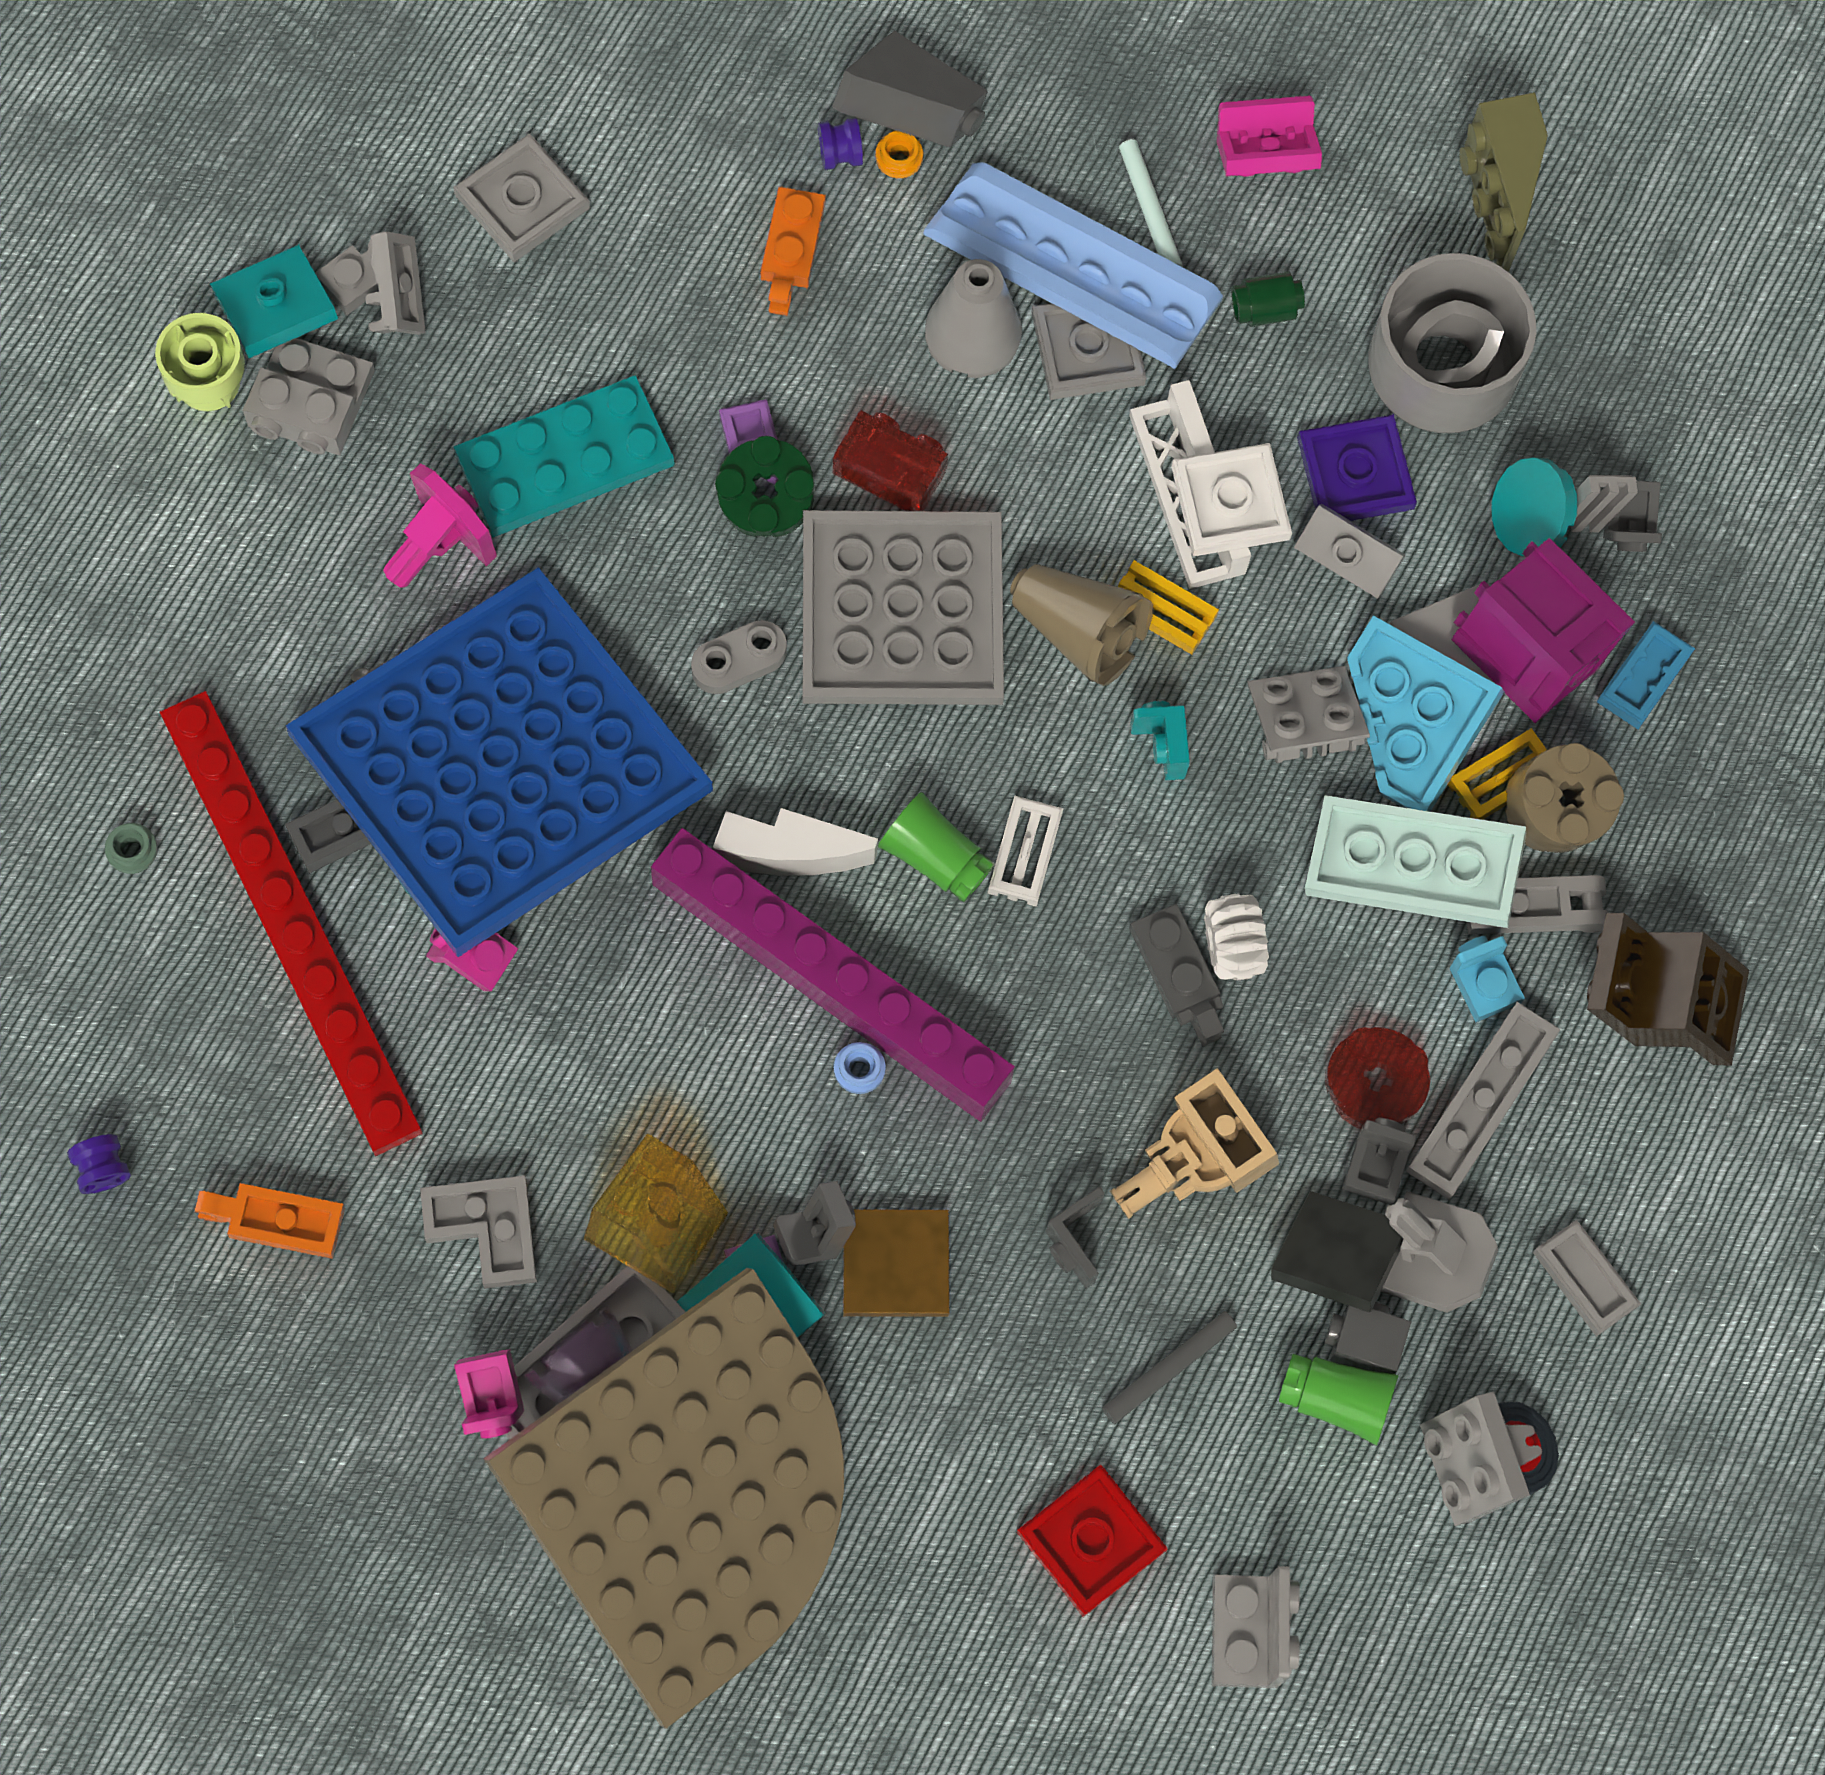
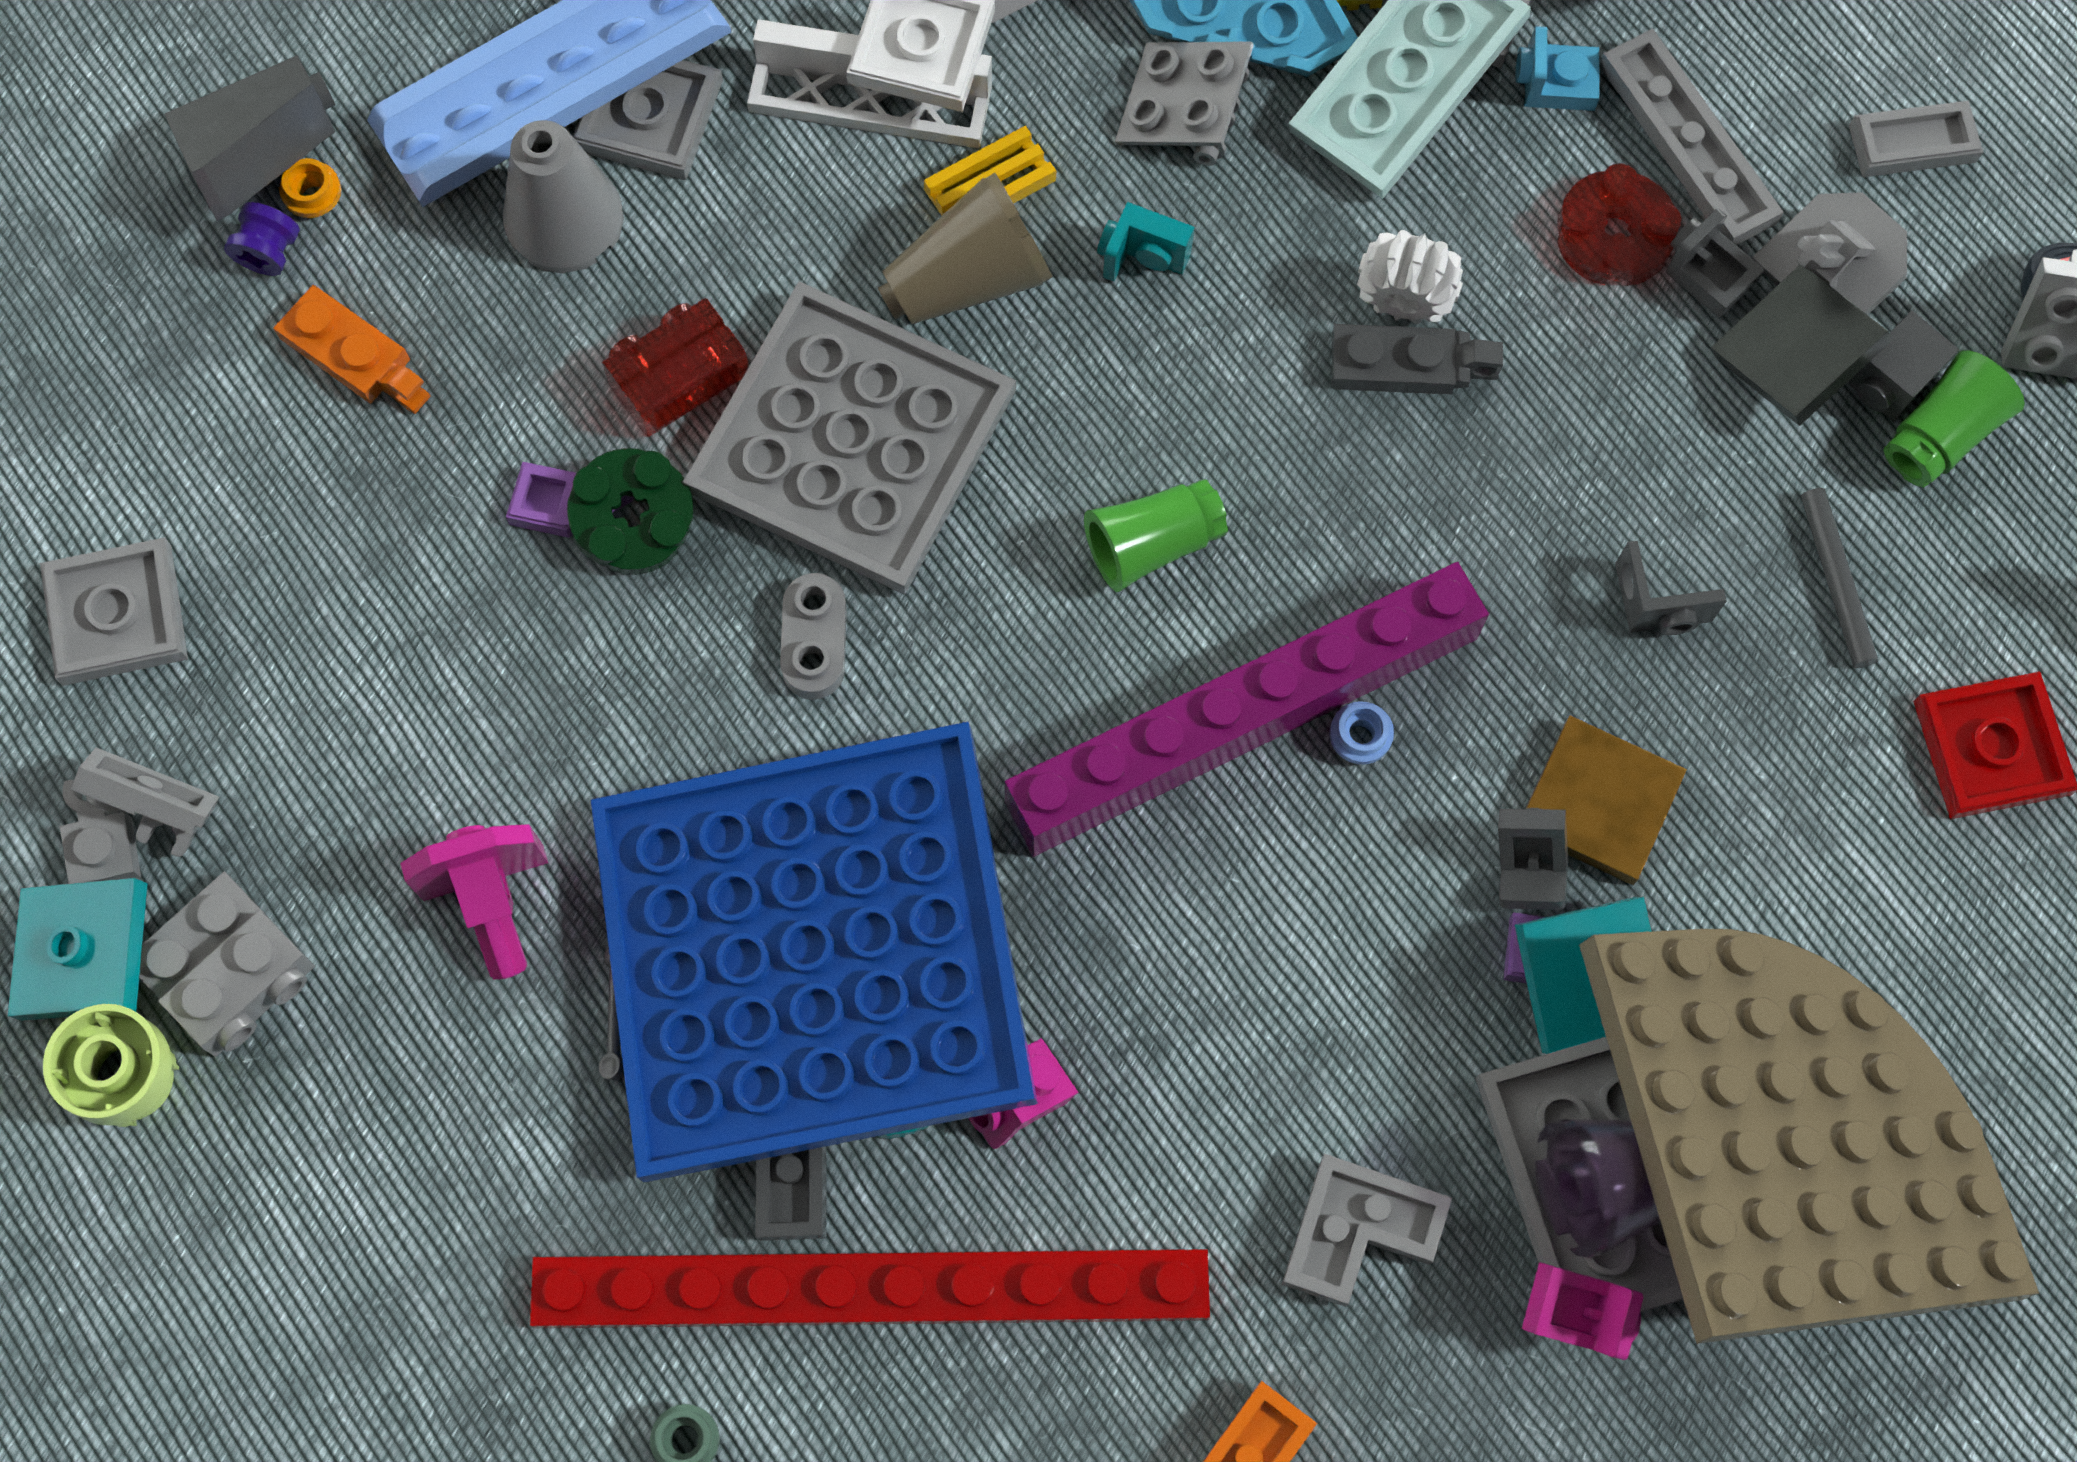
camera: 60 degrees left, 0 degrees up
(564, 456) = (463, 710): teal plate -> none
(656, 1214) = (1440, 1027): clear yellow slope -> none
(792, 846) = (1069, 682): white slope -> none
(1015, 889) = (1170, 398): white tile -> none
(1207, 1143) = (1623, 422): tan brick -> none

